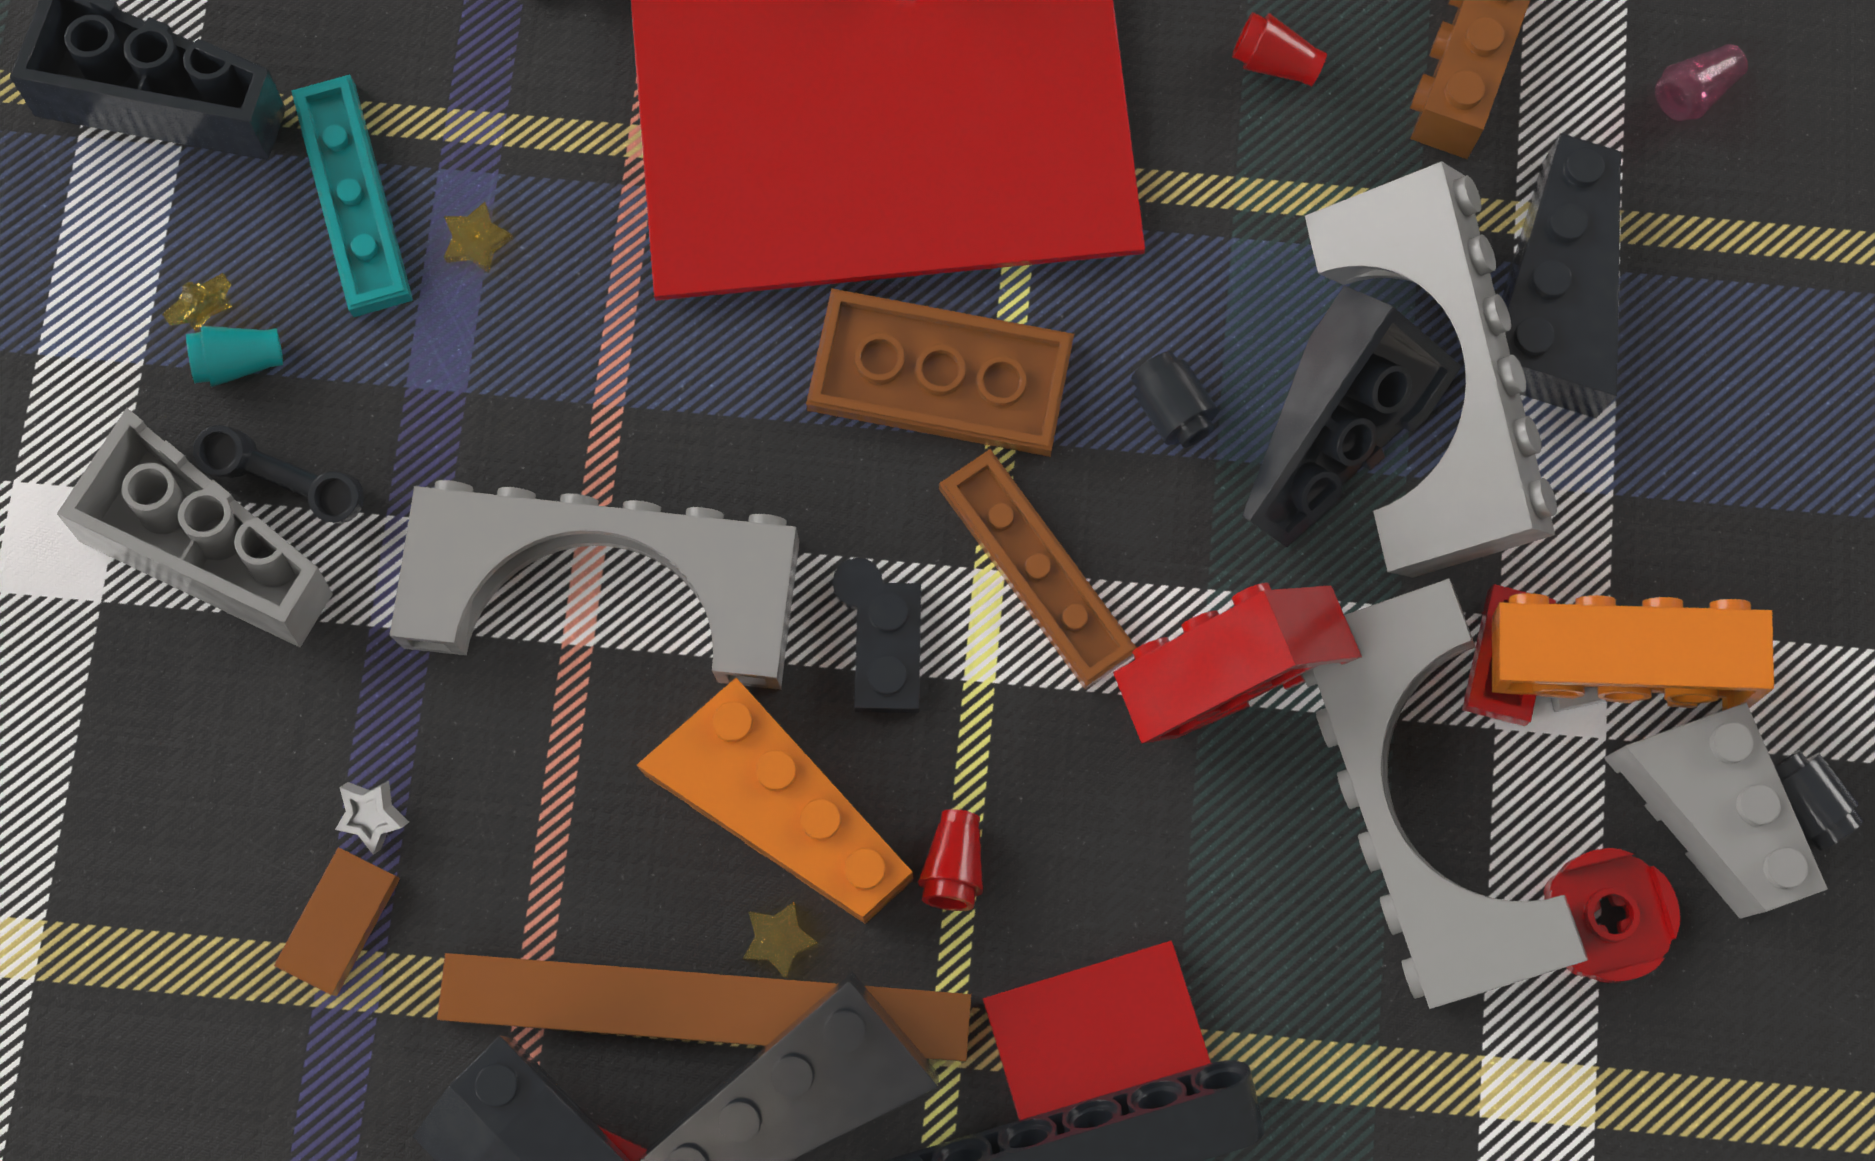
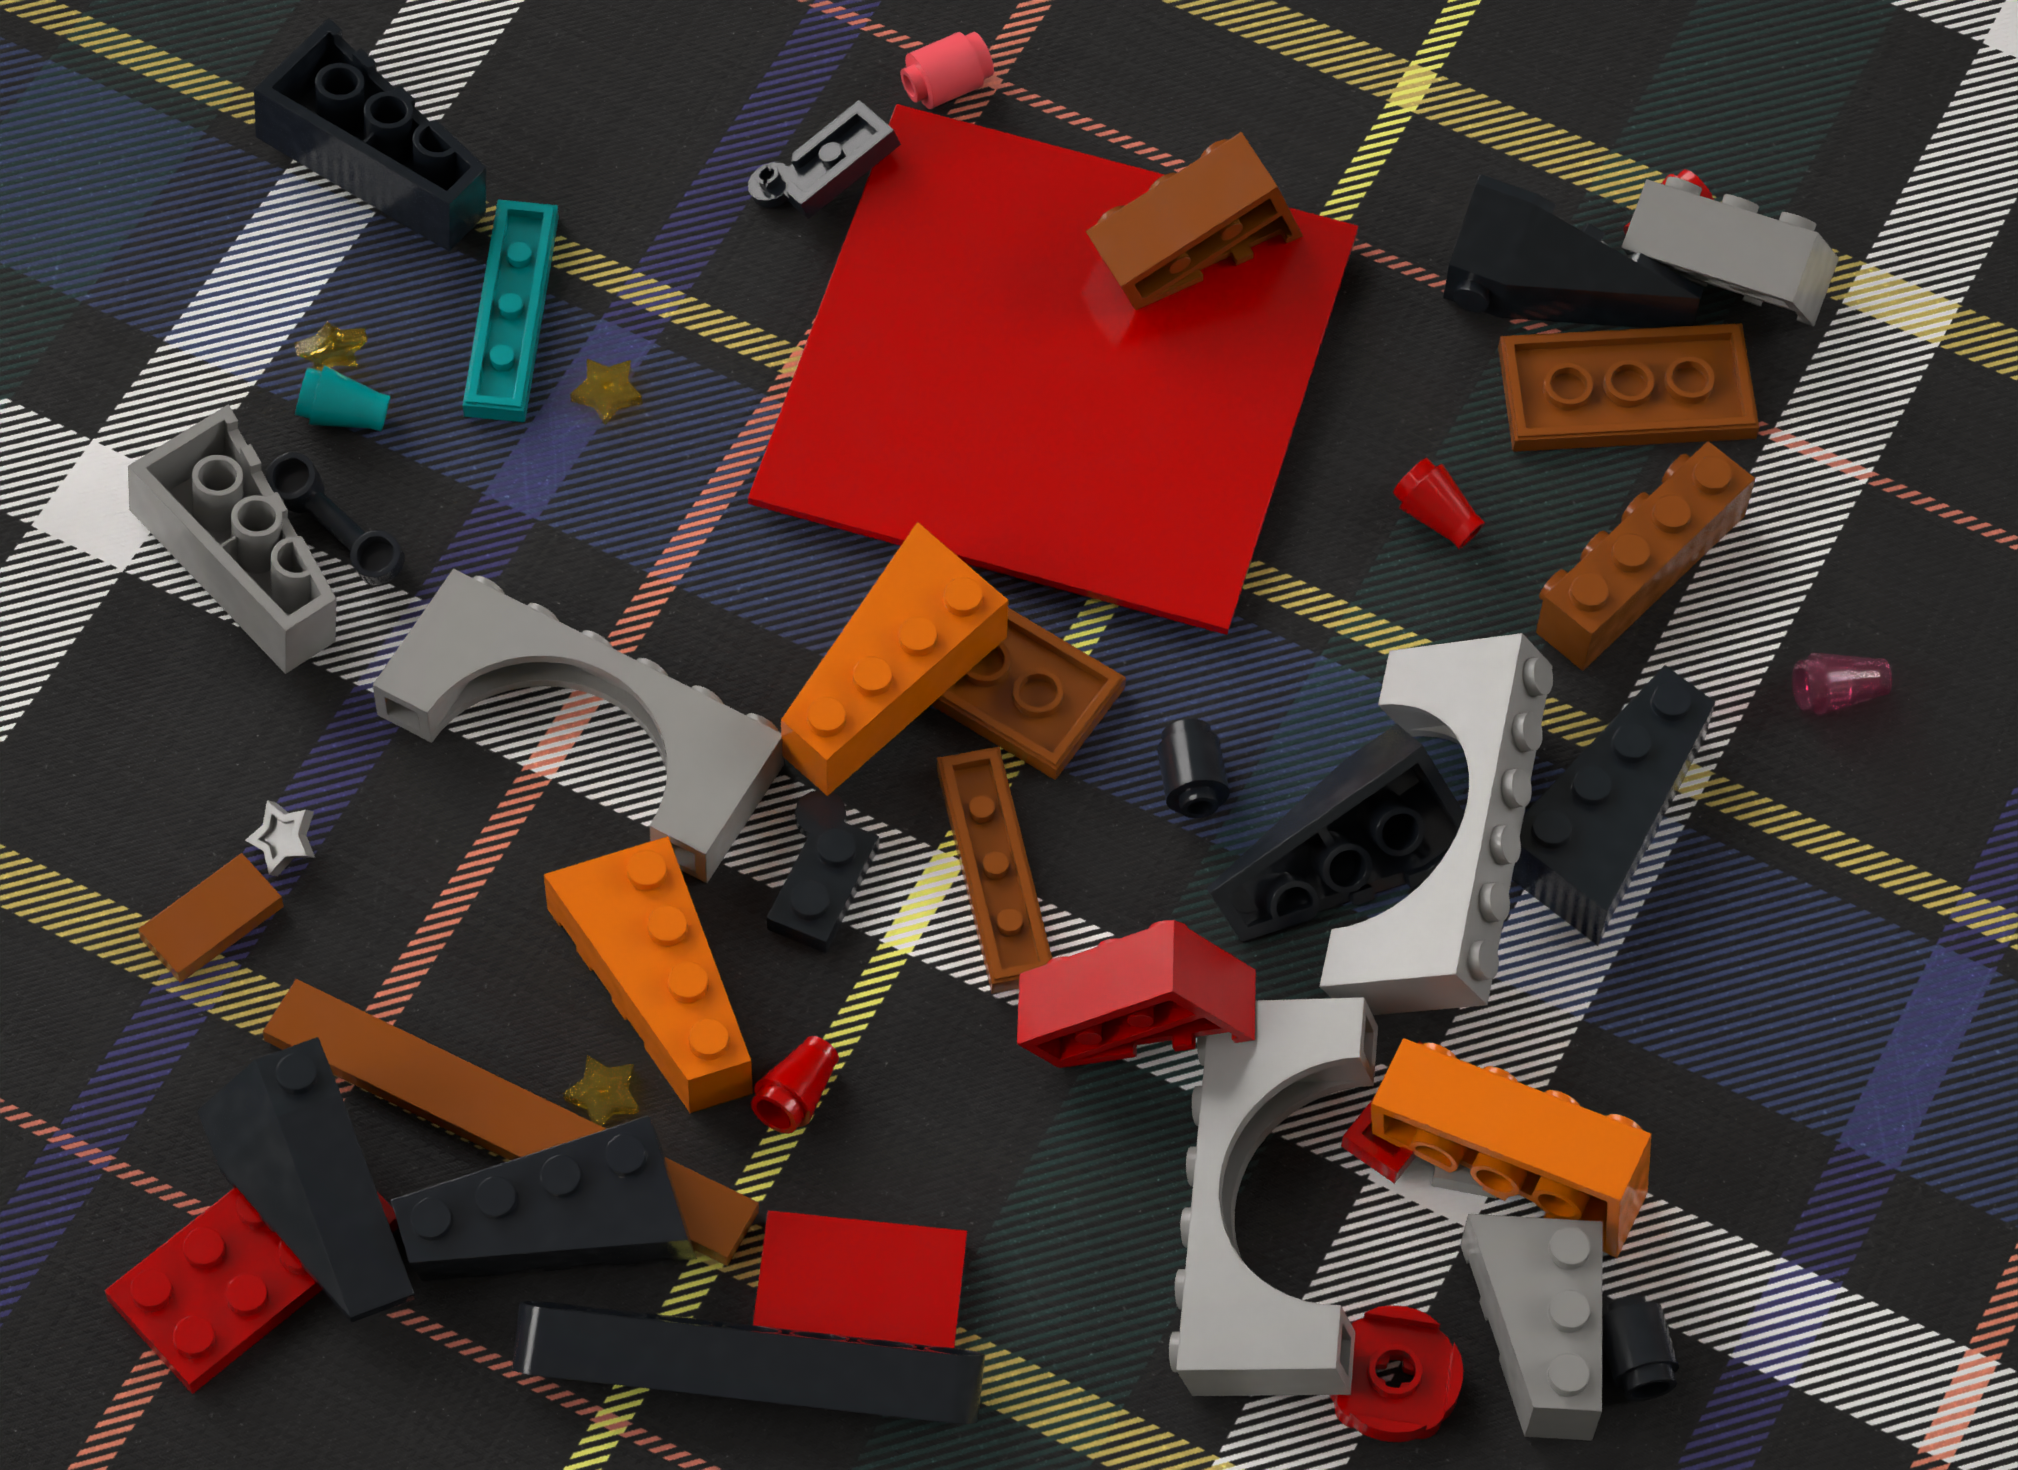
camera: 20 degrees right, 15 degrees down
(866, 399) = (893, 659): none -> orange wedge

